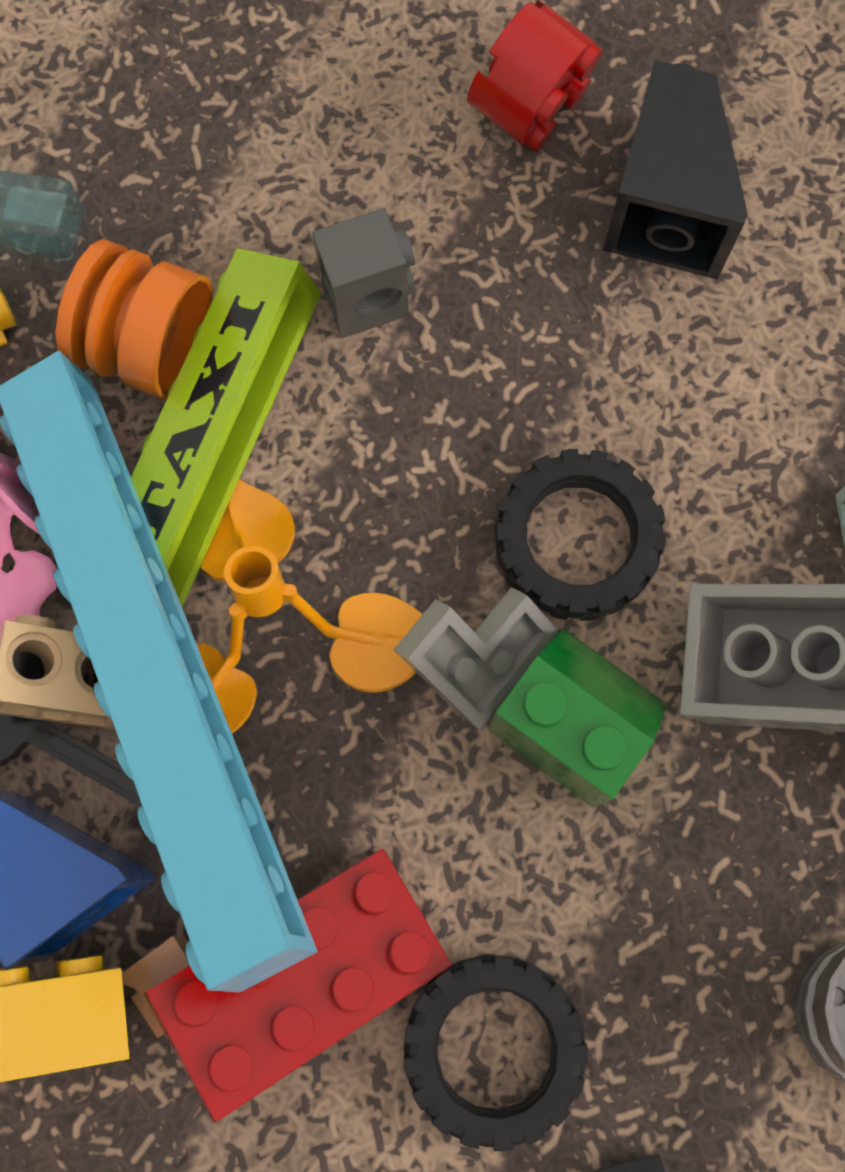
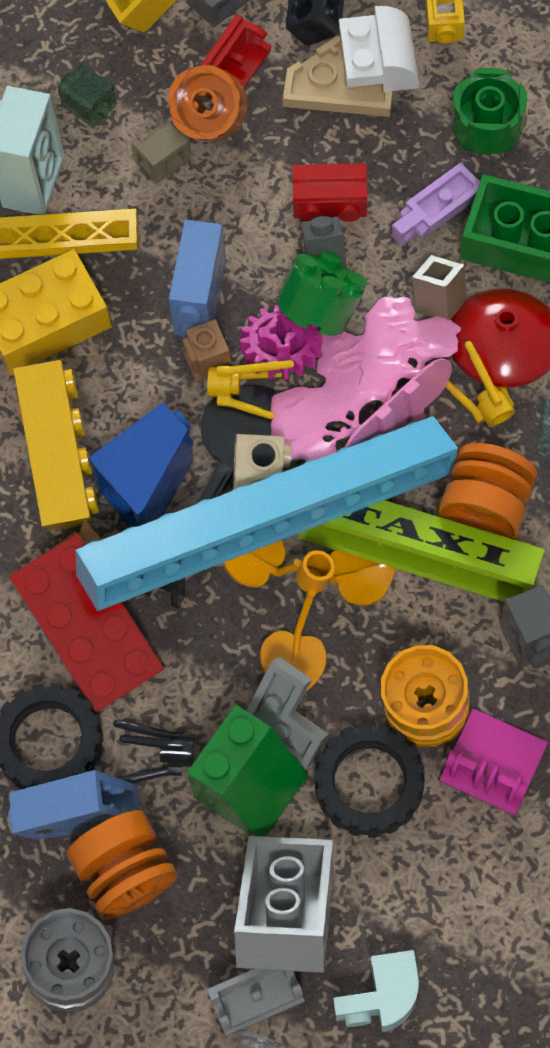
camera: 90 degrees right, 10 degrees down
(456, 399) = (422, 673): none -> light orange wheel
(522, 832) = (174, 749): none -> black plant
(554, 358) = (493, 762): none -> dark pink hinge
(621, 1006) = (70, 805): none -> medium blue slope
(736, 916) = (120, 863): none -> orange wheel

